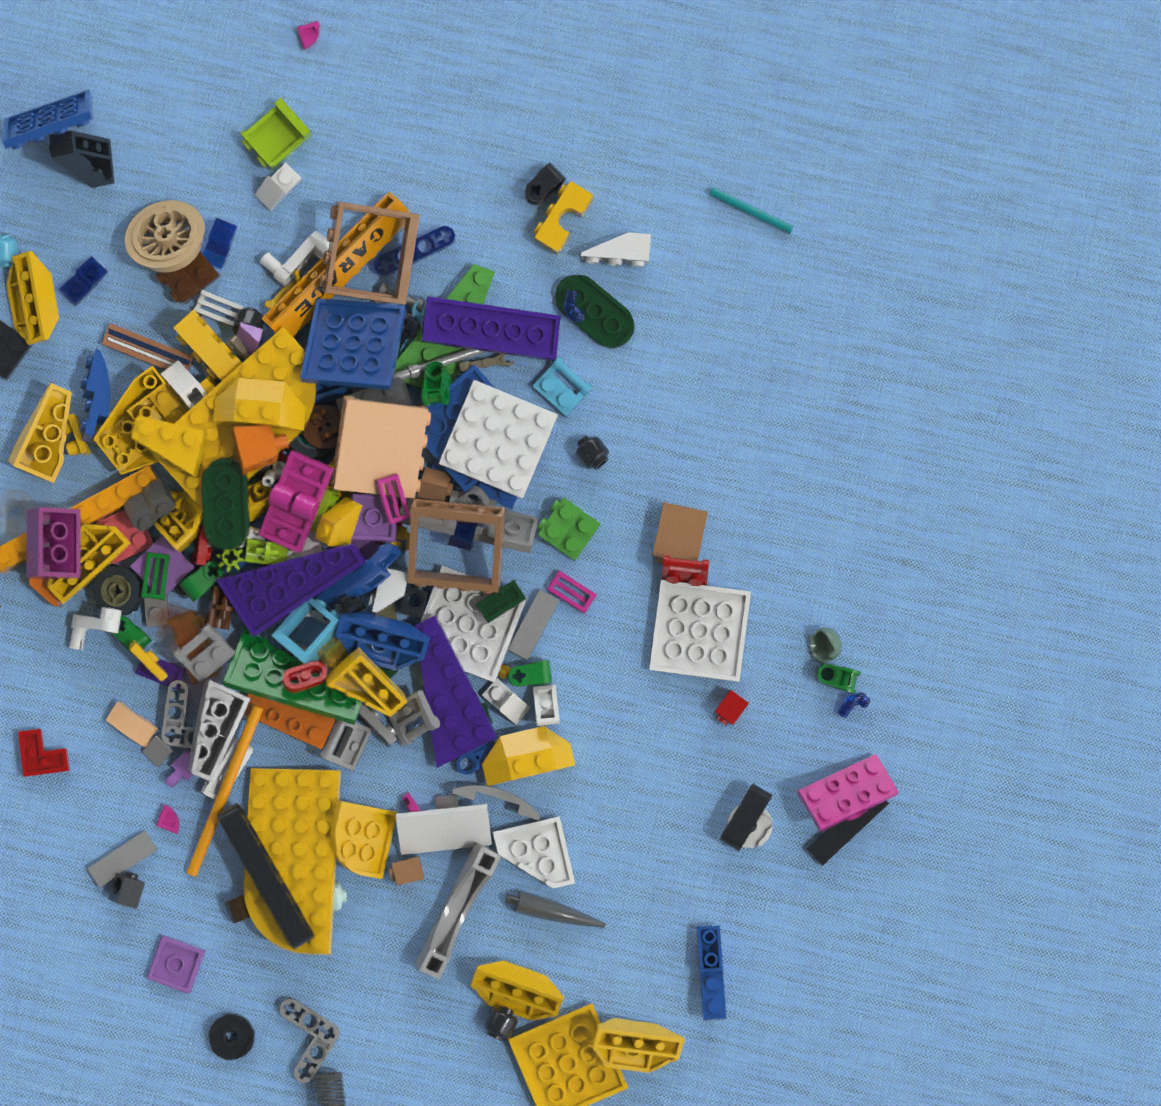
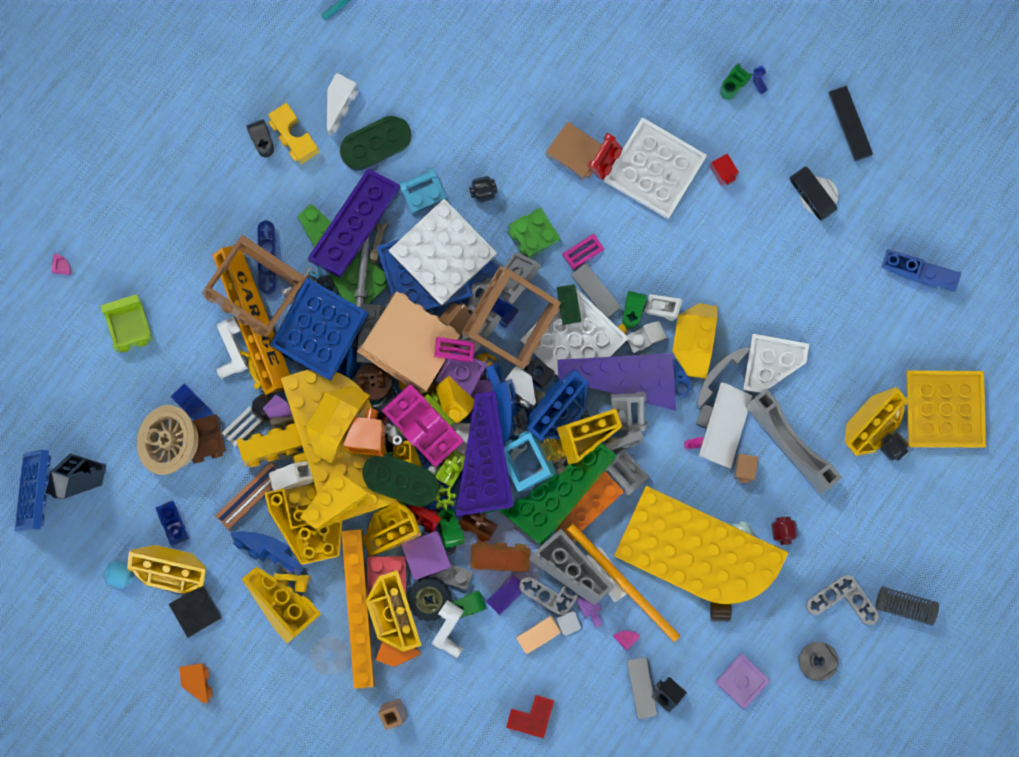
camera: 65 degrees left, 5 degrees down
(53, 543) = (370, 631): magenta slope -> none
(149, 505) = (373, 543): dark grey brick -> none
(149, 659) = (494, 597): yellow plate -> none
(153, 595) = (445, 571): green tile -> none
(208, 658) = (514, 546): light grey plate -> none
(265, 876) = (706, 576): black beam -> none
(278, 186) = (168, 340): white slope -> none
(303, 676) = (562, 479): red plate -> none
(357, 941) = (784, 530): none -> dark red head
(362, 837) = (706, 490): yellow plate -> none
(436, 388) = (382, 281): green piece -> none
(550, 910) = (821, 373): dark grey piece -> none
(571, 308) = (365, 157): clear blue arm -> none
(636, 1045) = (954, 348): yellow wedge -> none
(825, 645) = (707, 80): sand green hair -> none
(847, 793) = (827, 109): dark pink plate -> none

